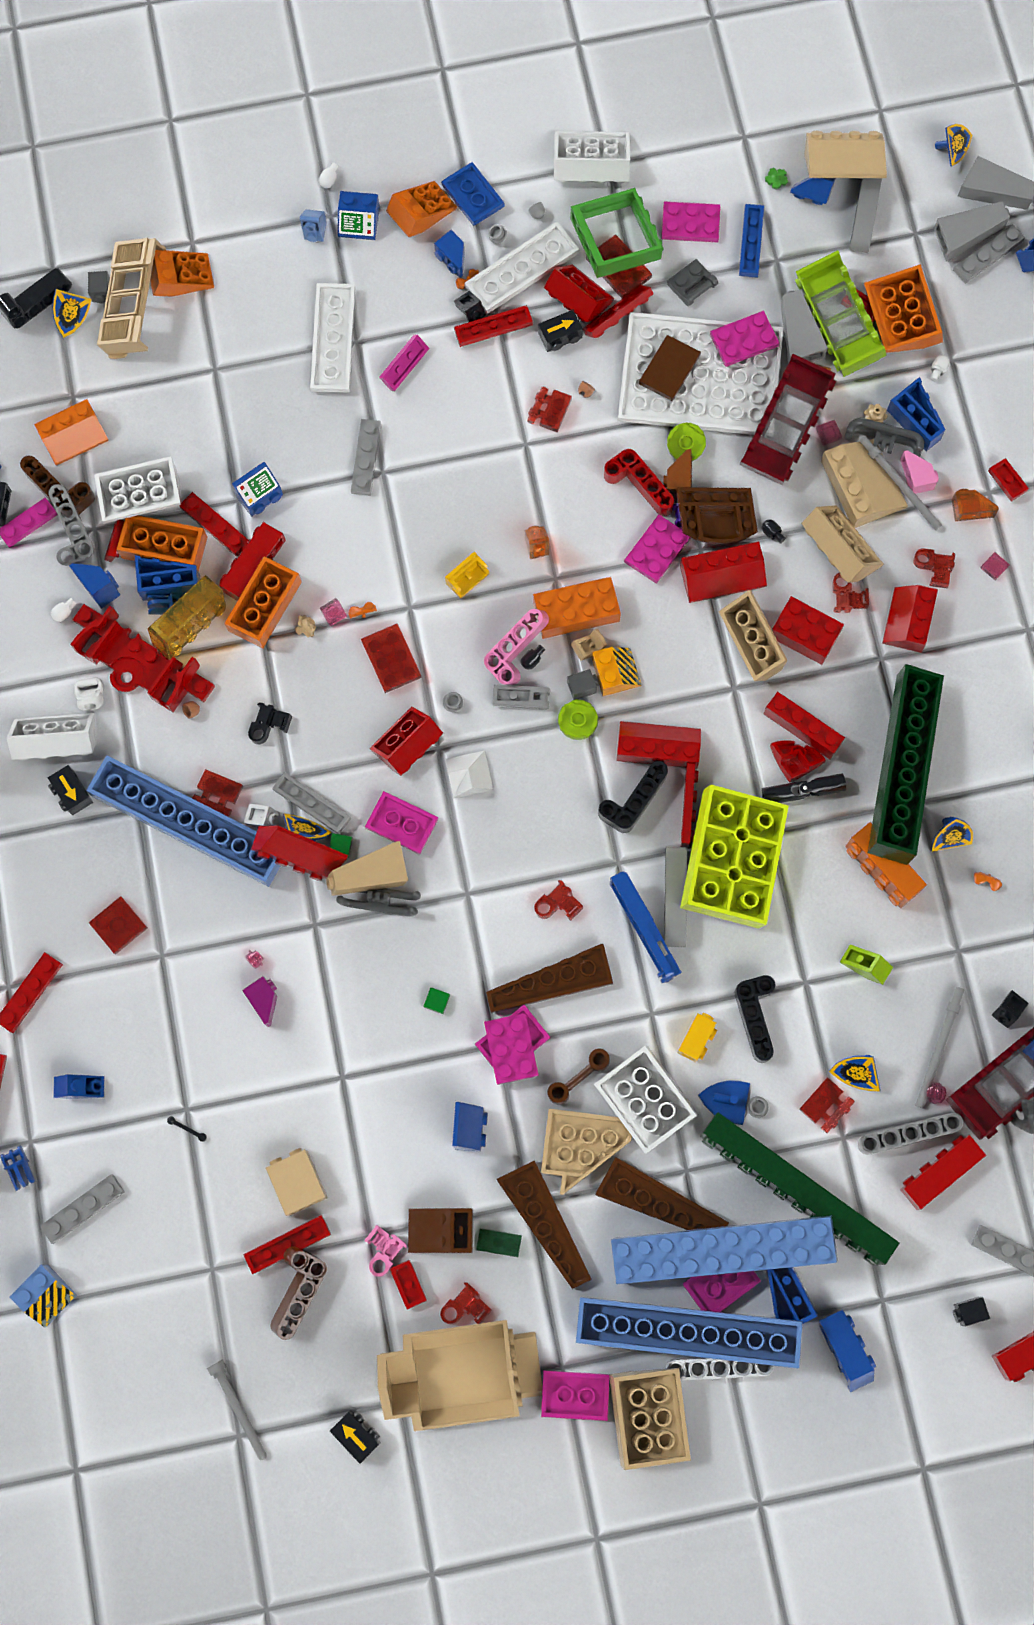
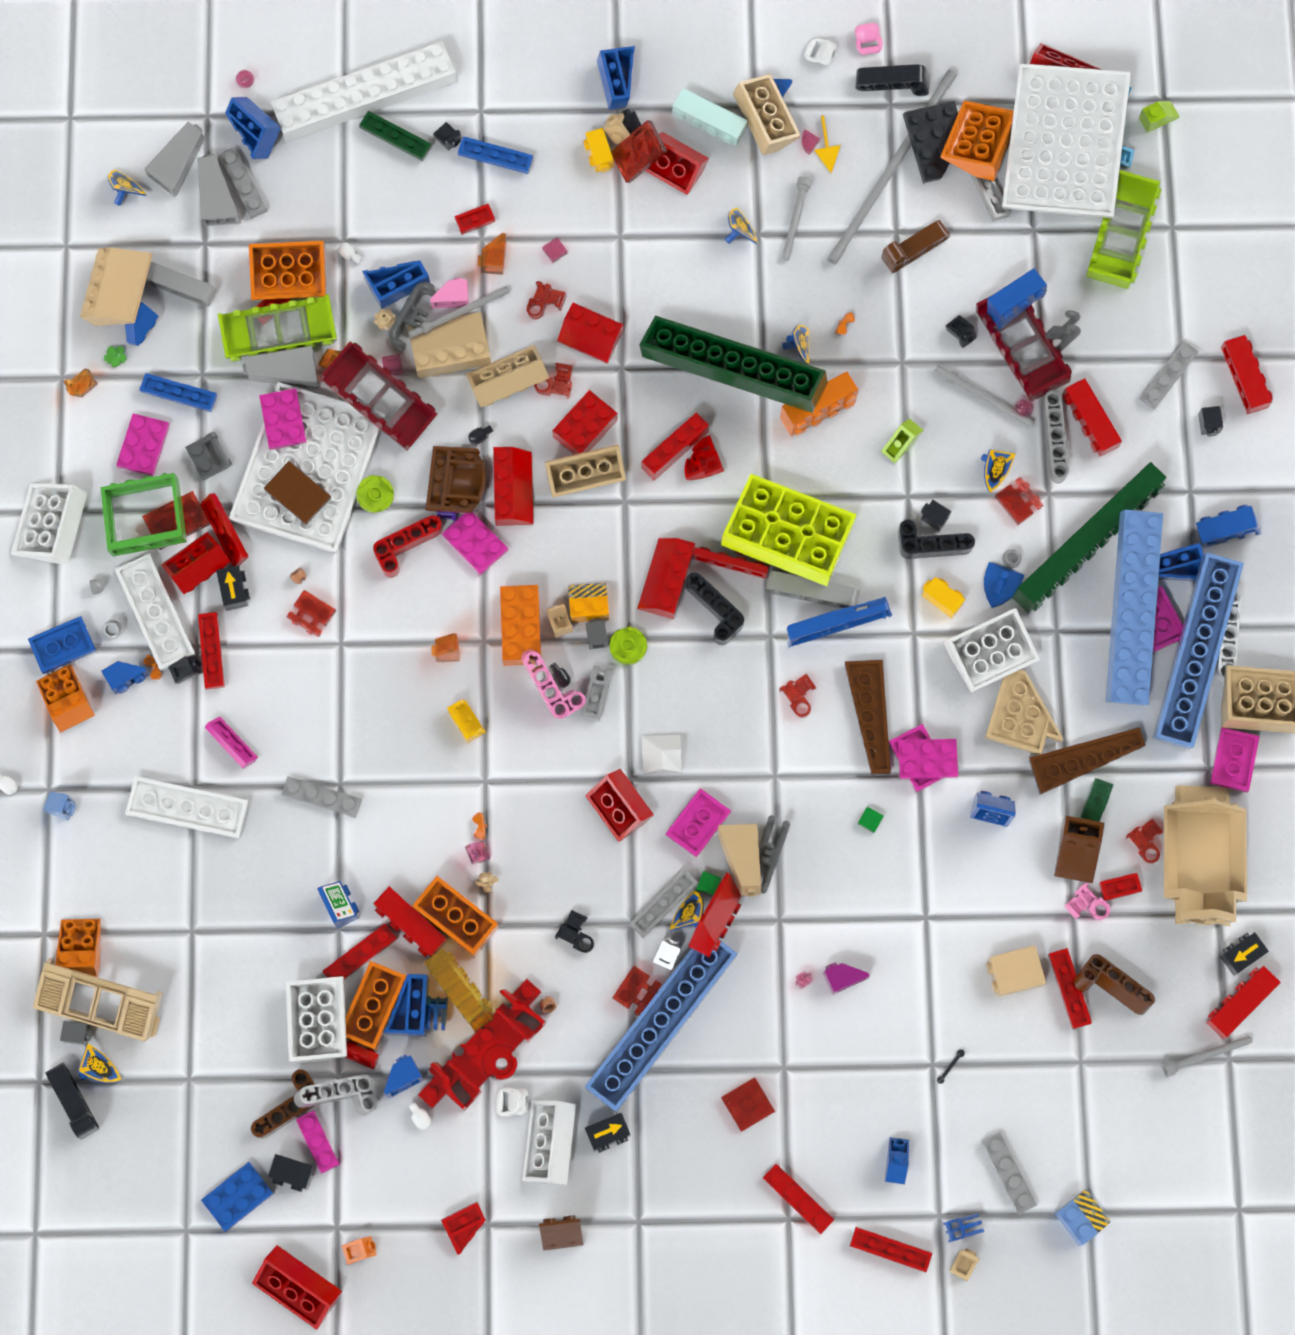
camera: 85 degrees left, 0 degrees up
(71, 432) = (231, 1082): orange slope -> none
(300, 1442) = (1243, 1002): none -> red brick
(358, 215) = (59, 761): slope -> none
(391, 658) = (534, 806): clear red plate -> none
(452, 702) = (589, 756): light grey plate -> none
(598, 1061) = (973, 725): reddish brown piece -> none
(646, 1195) = (1073, 668): reddish brown wing -> none
(679, 473) = (408, 505): dark orange slope -> none
(738, 152) = (81, 384): none -> clear orange bracket
(788, 1014) = (935, 515): none -> black brick
(816, 787) = (733, 440): black piece -> none

